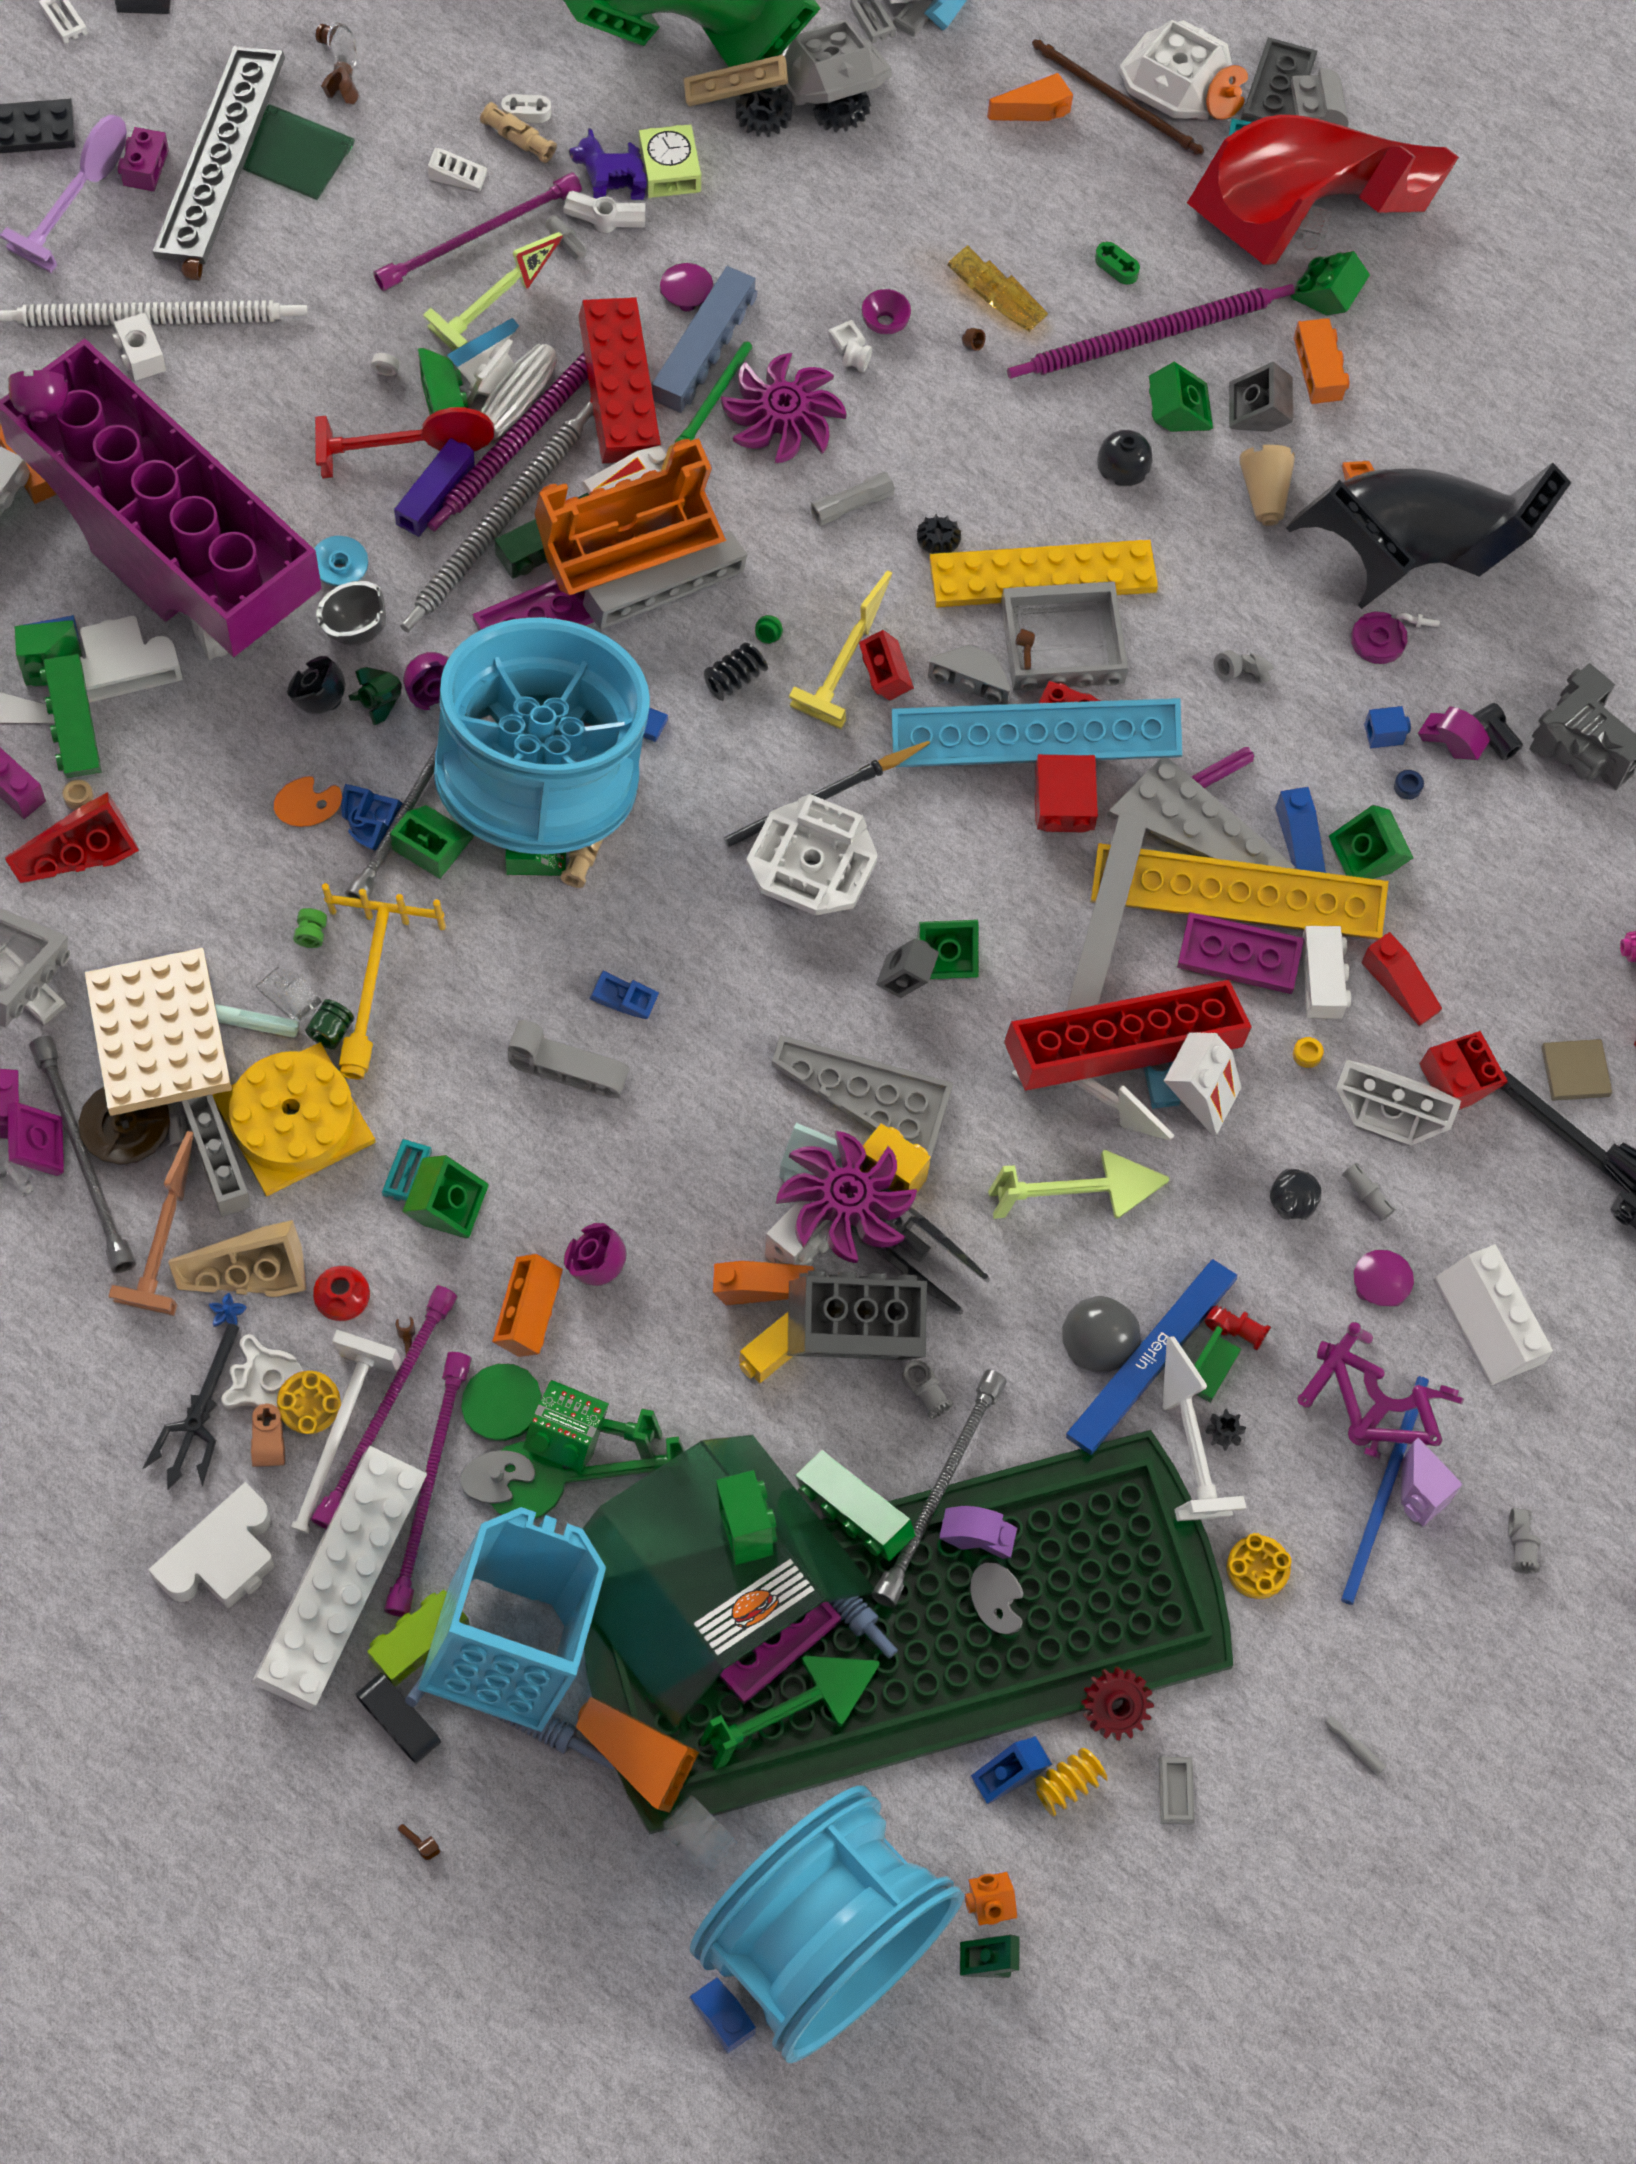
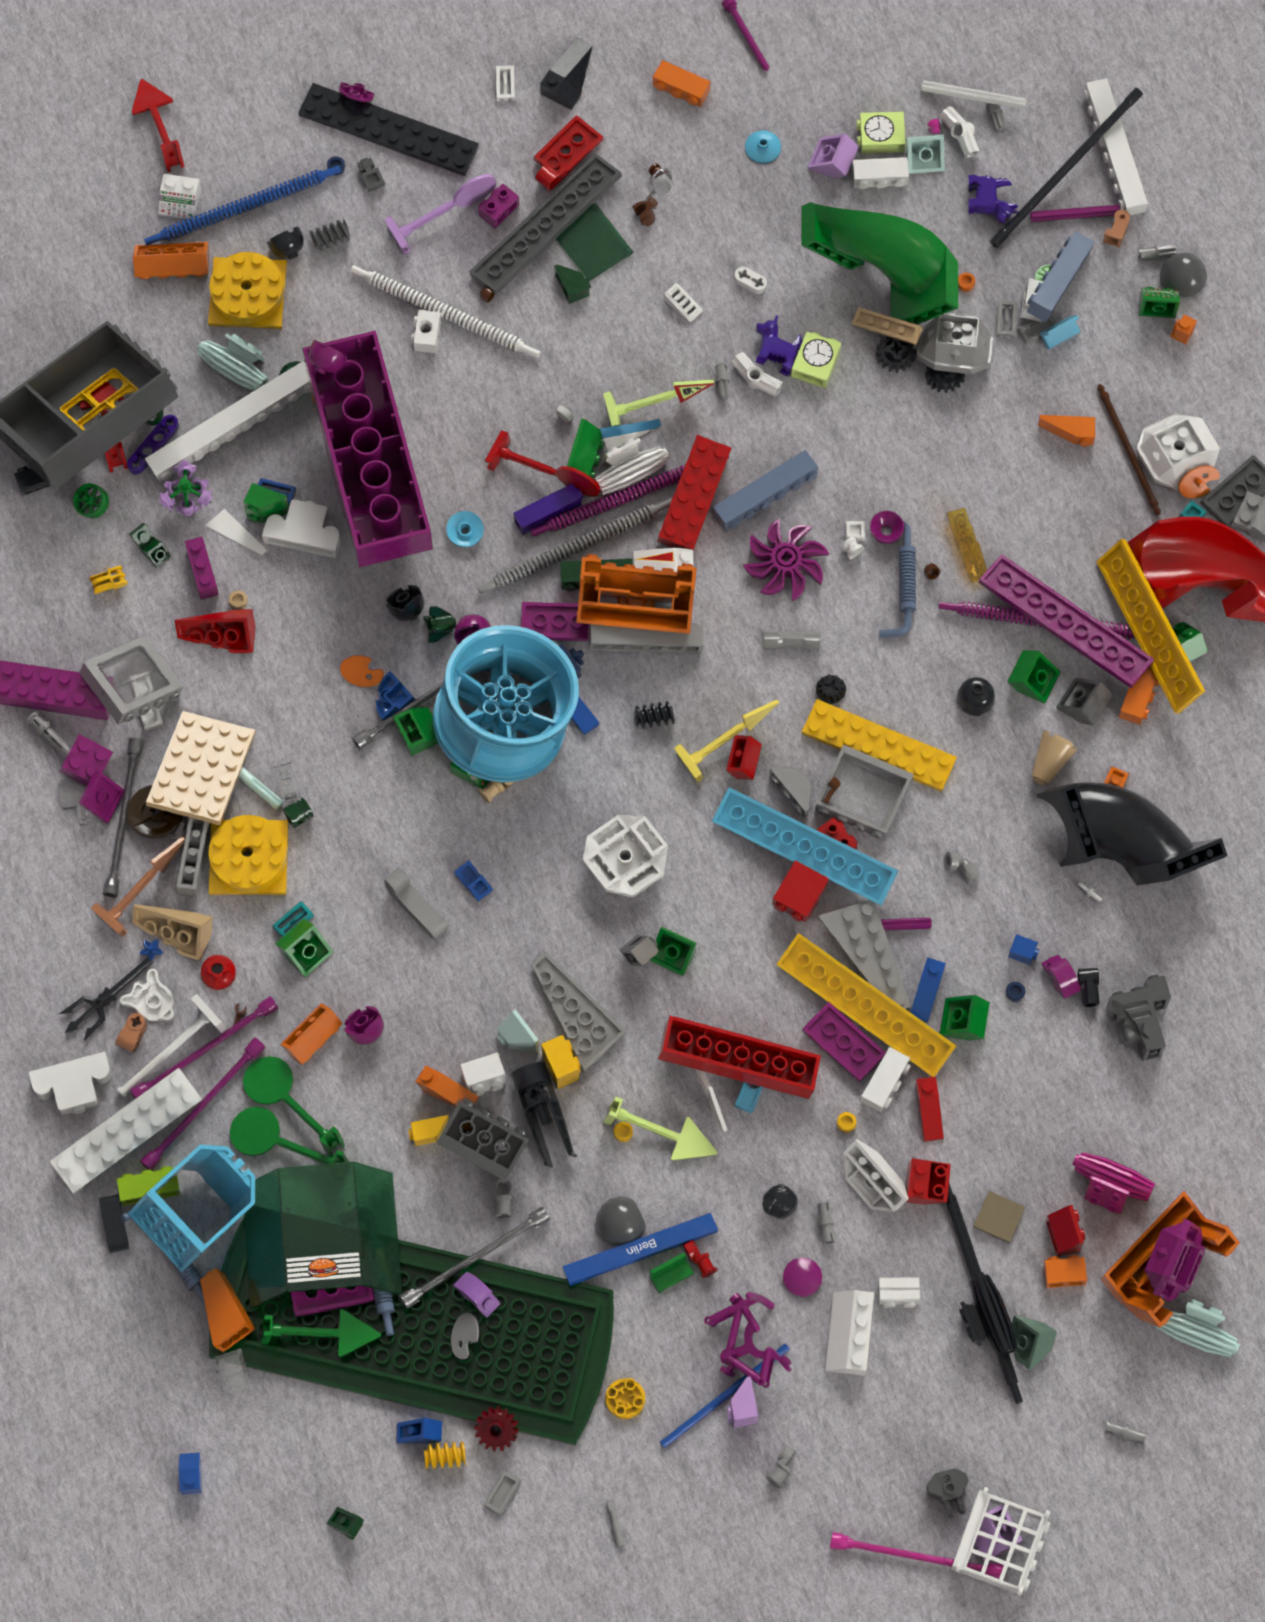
camera: 35 degrees right, 5 degrees up
(71, 715) = (257, 552): green brick -> none
(193, 81) = (558, 165): none -> red hinge
(297, 207) = (572, 283): none -> dark green slope
(308, 1402) = (164, 1024): yellow tile -> none
(310, 928) = (320, 749): bright green wheel -> none
(352, 612) = (451, 567): dark grey cylinder -> none
(357, 1048) = (304, 835): yellow piece -> none
(392, 274) = (602, 355): magenta hose -> none
(428, 1848) = (91, 1301): reddish brown hand -> none
(487, 1479) = (235, 1120): light grey piece -> none
(518, 132) = (734, 295): tan piece -> none
(566, 1426) = (290, 1113): green slope -> none
(686, 285) = (777, 448): magenta dish -> none
(713, 397) = (699, 559): green piece -> none
(746, 1516) = (344, 1217): green brick -> none
(768, 629) = (690, 698): green plate -> none
(825, 1922) = (258, 1453): medium azure wheel -> none
(846, 1196) = (524, 1064): magenta piece -> none
(855, 1506) = (420, 1242): brick -> none
(864, 774) = (690, 818): black piece -> none
(954, 369) = (907, 585): none -> sand blue piece
(991, 1898) = (364, 1493): orange brick -> none
(1029, 1216) = (623, 1131): none -> yellow tile
(1107, 911) = (776, 979): light grey tile -> none
(1117, 263) = (1059, 562): green beam -> none
(1180, 1384) = (640, 1277): white piece -> none
(1181, 314) = (1066, 621): none -> magenta plate
(1205, 1078) = (767, 1108): white slope -> none
(1222, 1422) = (657, 1307): black gear -> none
(1289, 272) = (1150, 626): none -> yellow plate
(1379, 637) = (1059, 890): magenta tile -> none
(1520, 1228) = (899, 1291): none -> white brick

